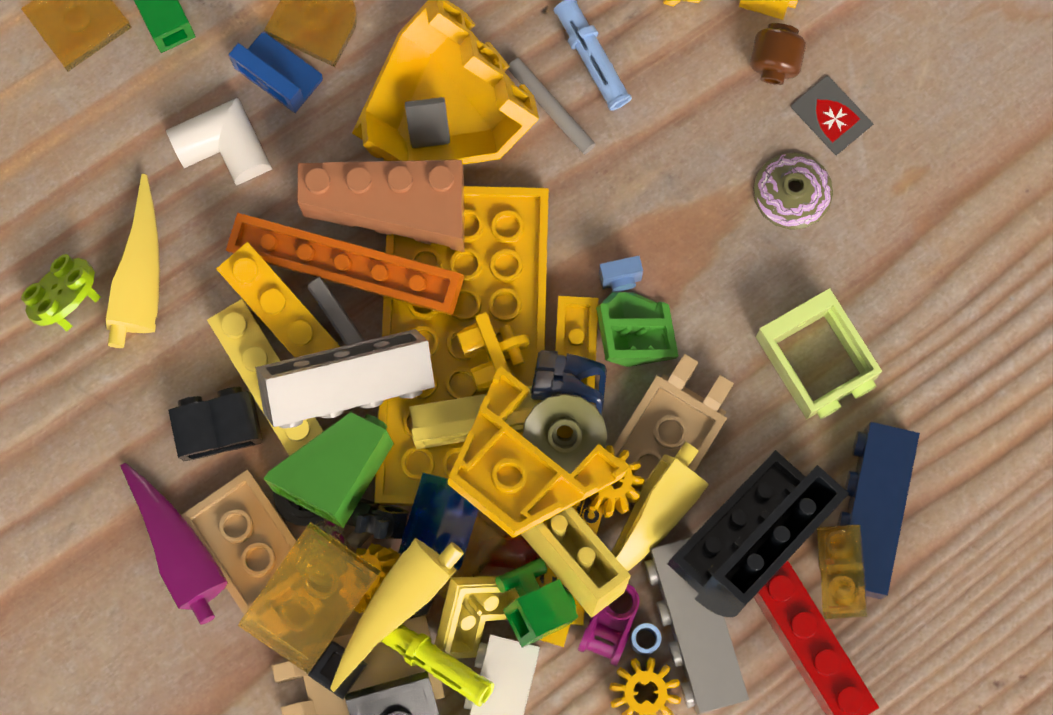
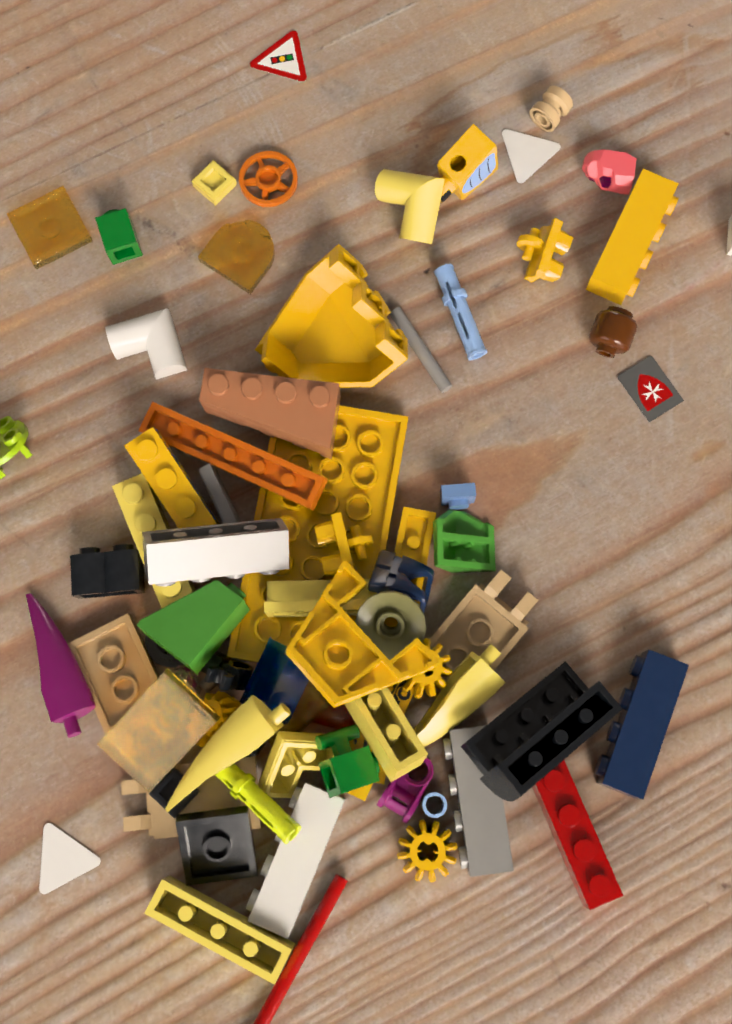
camera: 10 degrees right, 0 degrees up
(136, 281) = (62, 446): light yellow piece -> none
(276, 71) = (202, 291): blue panel -> none
(427, 122) = (317, 349): dark grey slope -> none
(790, 208) = (608, 461): dish -> none
(798, 318) = (626, 547): yellowish green window -> none
(842, 572) = (607, 774): clear yellow slope -> none

